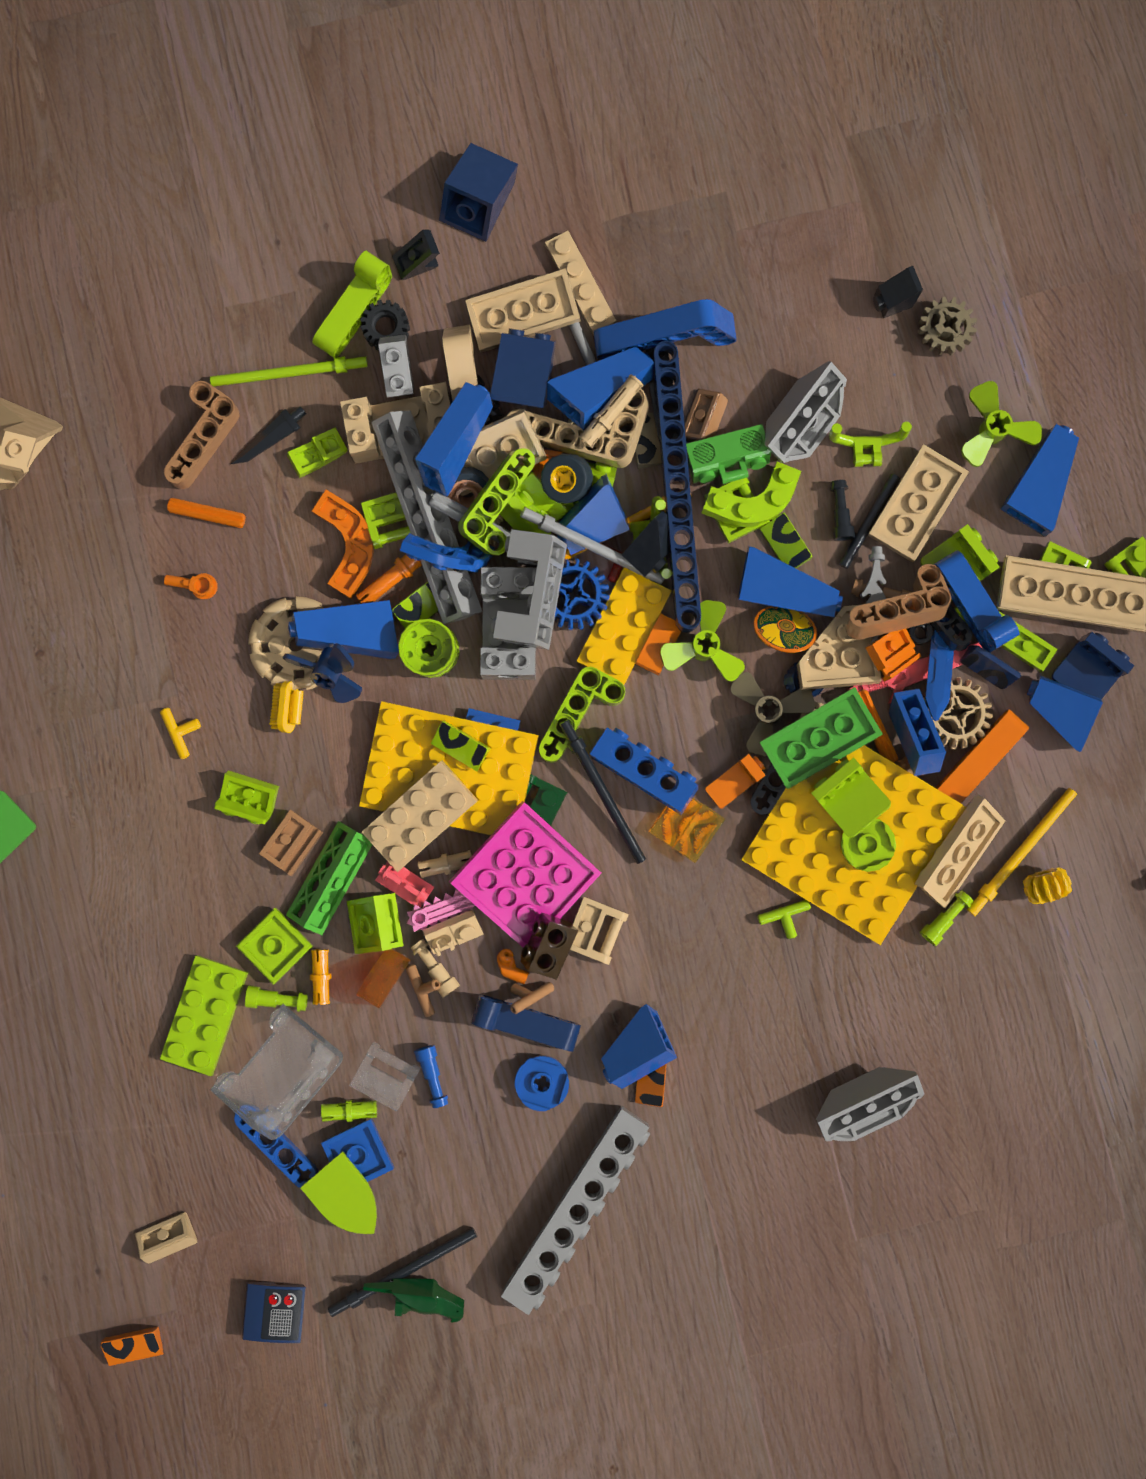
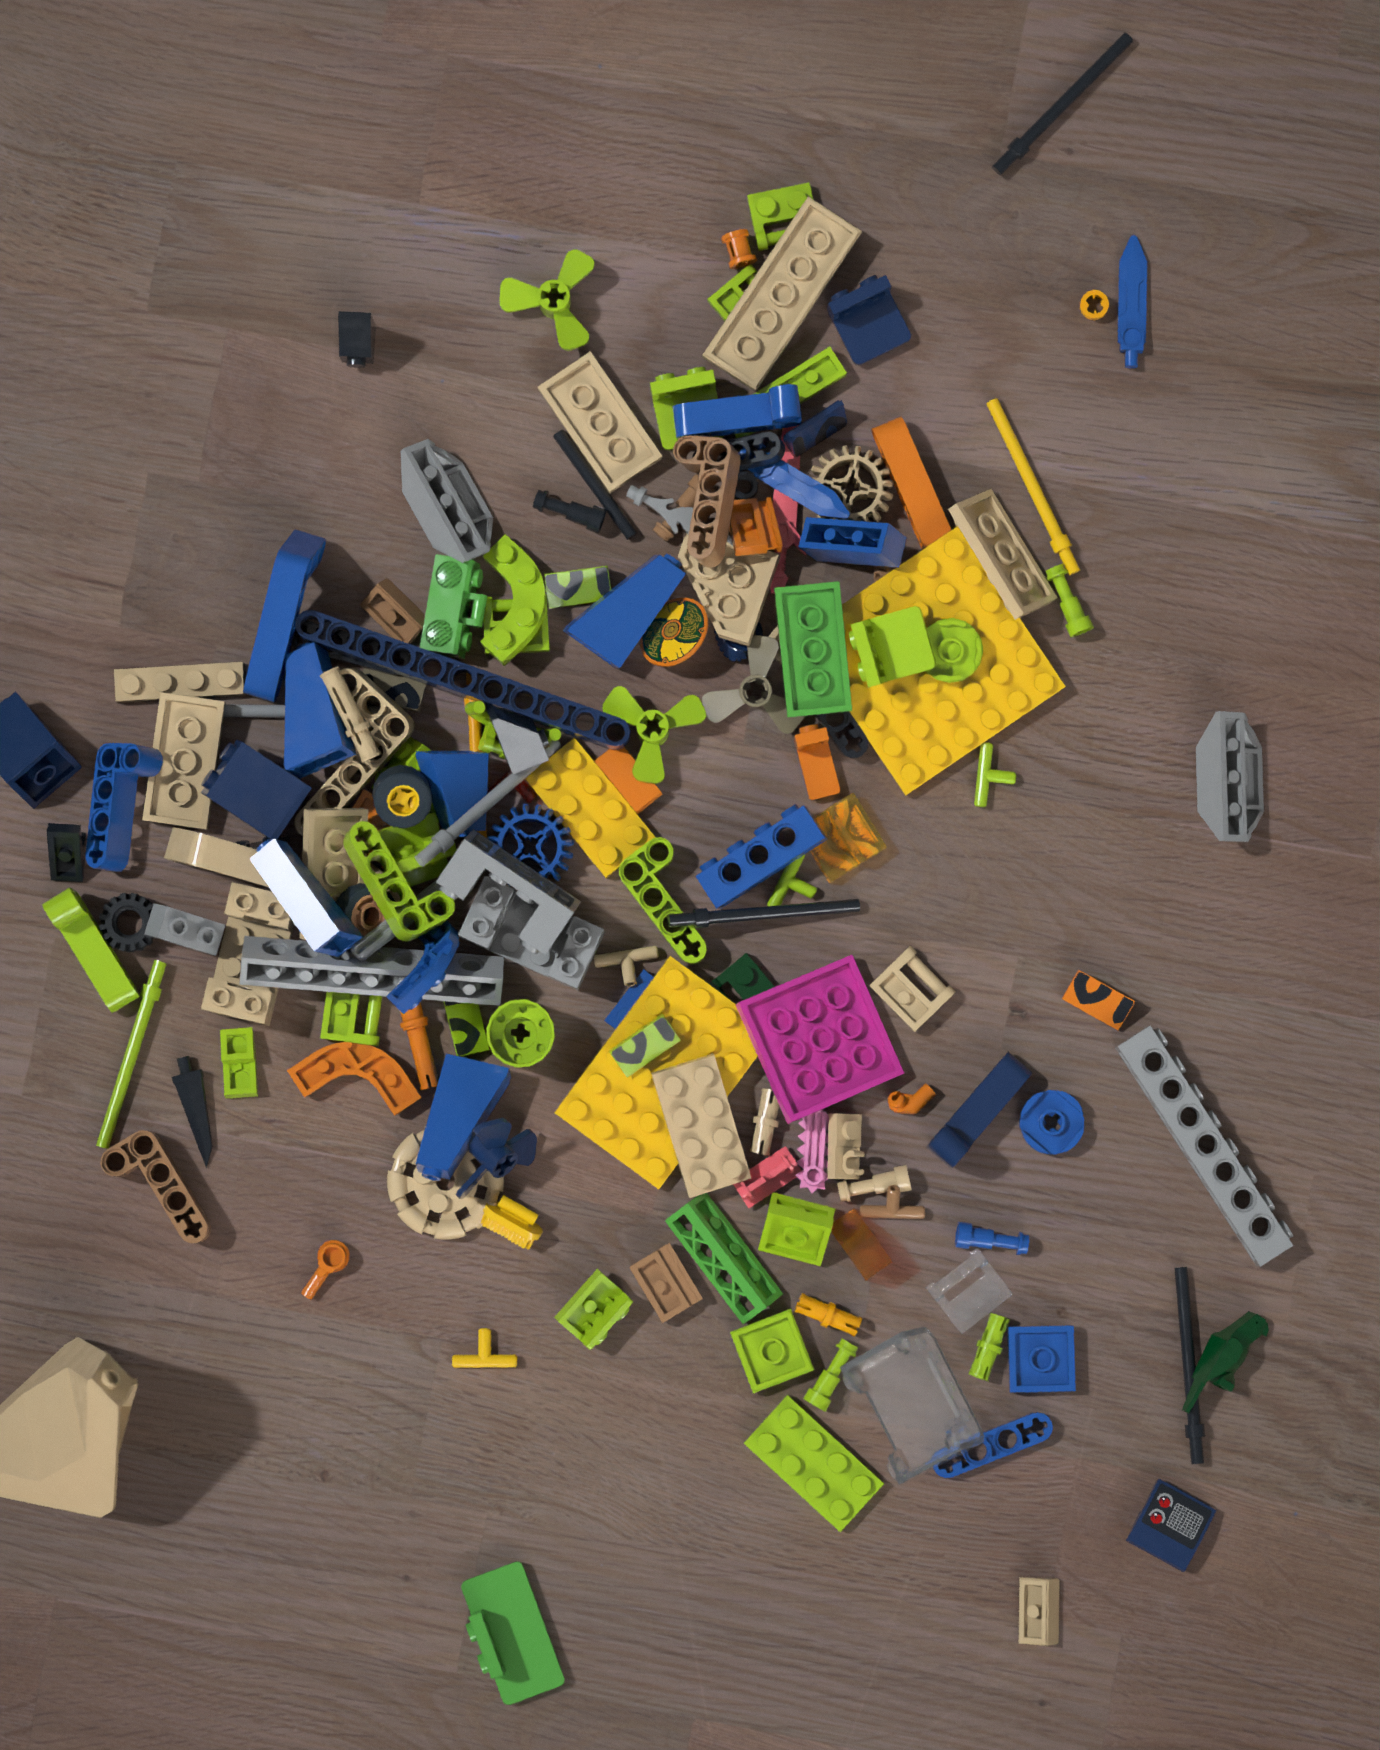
camera: 65 degrees left, 0 degrees up
(132, 1346) = (1140, 1697): orange slope -> none
(206, 513) = (250, 1217): orange axle -> none
(343, 1196) = (1078, 1392): lime shield -> none
(468, 273) = (114, 801): none -> blue beam
(521, 705) = (627, 959): none -> tan piece
(528, 997) = (952, 1094): medium nougat piece -> none
(555, 947) = (911, 1041): dark brown brick -> none
(636, 800) = (789, 881): none -> lime piece
(638, 1049) = (1062, 1000): blue slope -> none
(868, 442) = (508, 440): lime piece -> none
(882, 742) = (848, 582): orange axle -> none
(948, 314) = (404, 299): dark tan gear -> none
(1042, 485) = (639, 276): blue slope -> none
(1047, 885) = (1081, 477): yellow gear -> none
(1065, 709) = (898, 369): blue slope -> none
(1099, 547) = (738, 249): none -> orange bush

